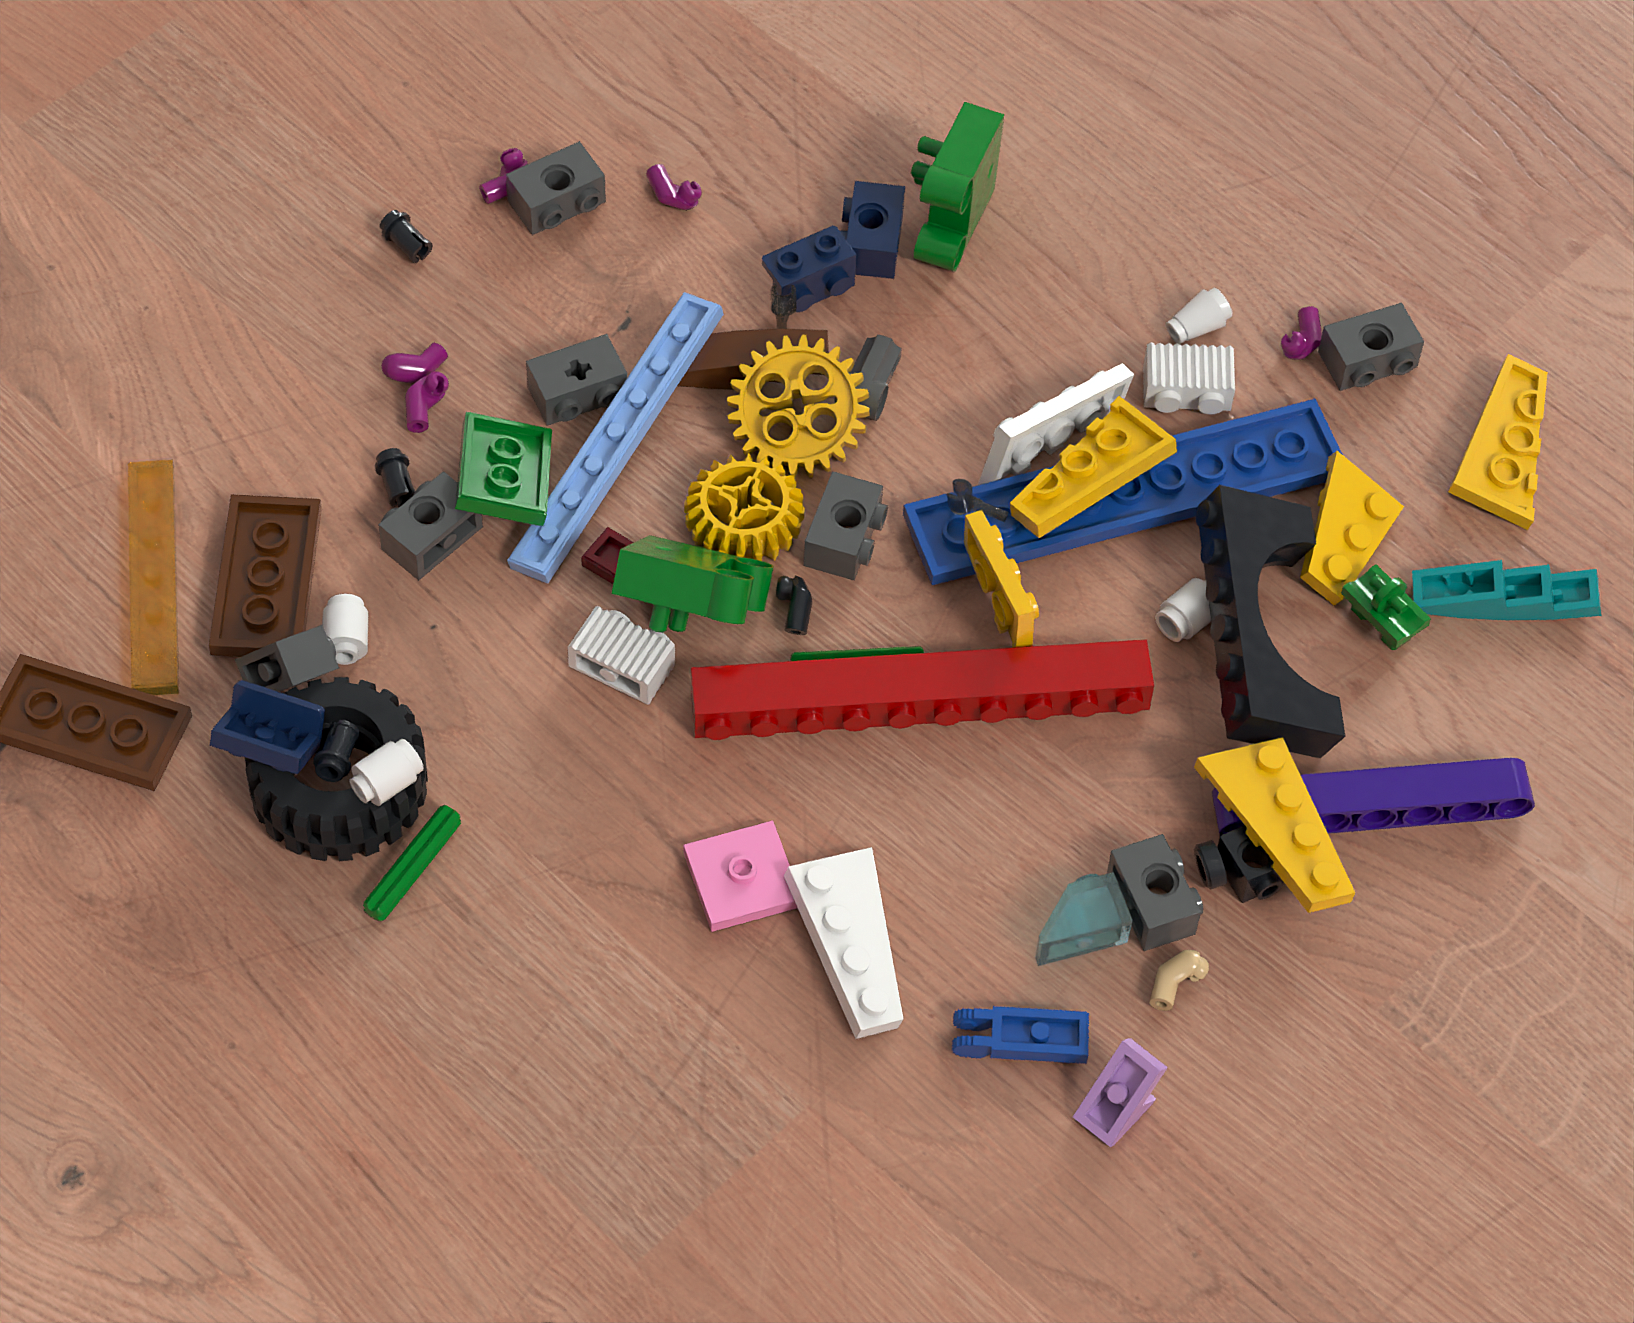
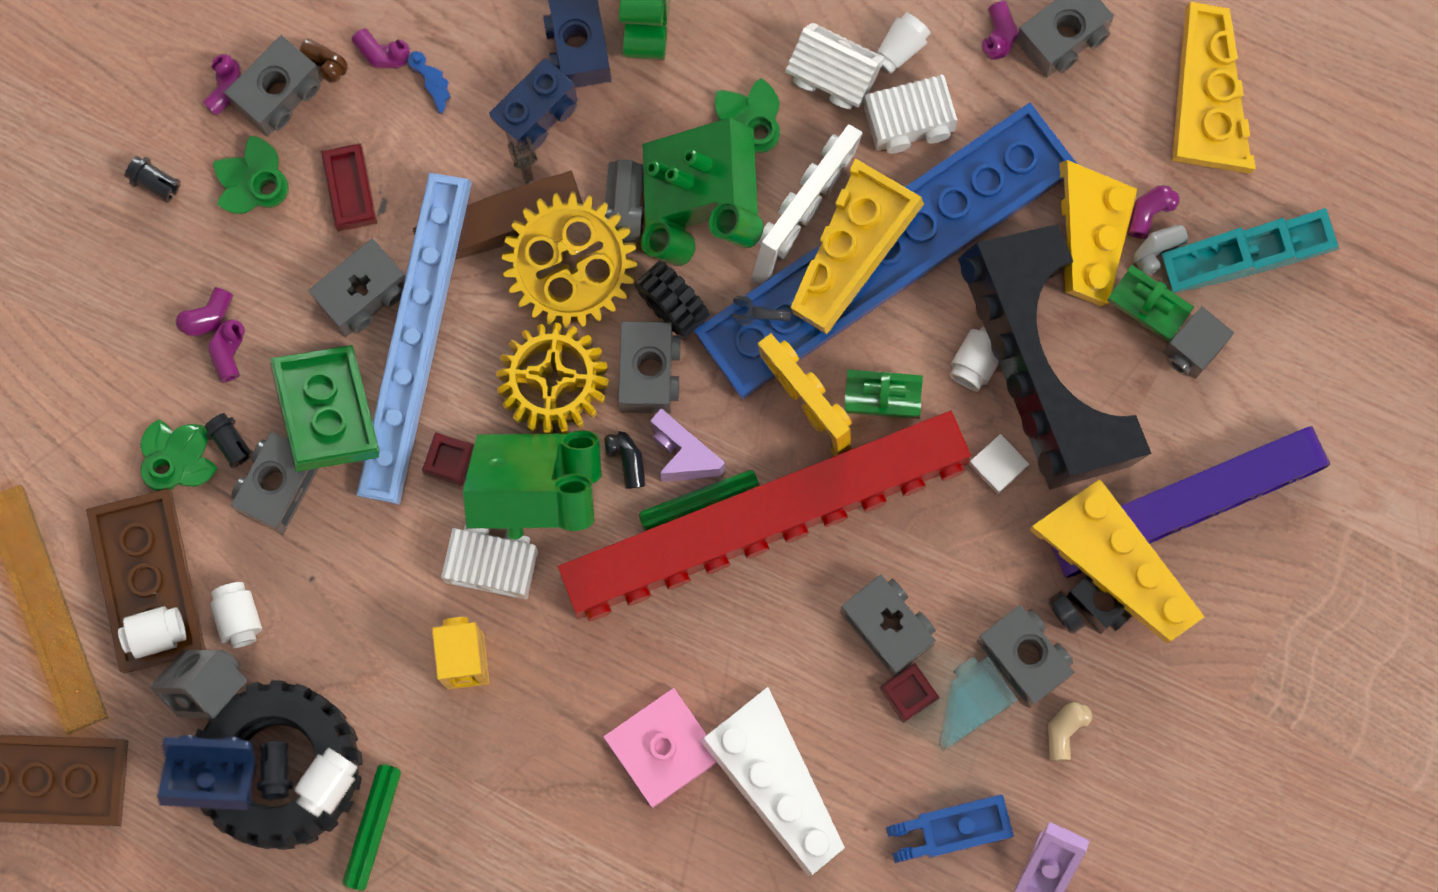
camera: 10 degrees left, 20 degrees up
(257, 611) = (152, 631): none -> white brick
(337, 478) = (177, 450): none -> green plate
(498, 263) = (247, 177): none -> green plate
(563, 719) = (460, 654): none -> yellow brick
(598, 296) = (349, 187): none -> dark red tile
(618, 184) = (330, 63): none -> reddish brown arm
(716, 230) = (434, 80): none -> blue piece
(859, 613) = (693, 457): none -> lavender slope
(893, 464) = (672, 299): none -> black tyre
(950, 368) = (697, 180): none -> green piece
(1015, 341) = (755, 111): none -> green plate
(1017, 823) = (866, 614): none -> dark grey brick
(1019, 898) = (909, 692): none -> dark red tile
(1080, 611) = (883, 394): none -> green hips
(1123, 312) = (833, 66): none -> white brick
(1182, 714) = (999, 464): none -> white tile
(1407, 526) = (1149, 204): none -> magenta arm
(1412, 558) = (1154, 244): none -> light grey arm
(1426, 657) = (1197, 343): none -> dark grey brick

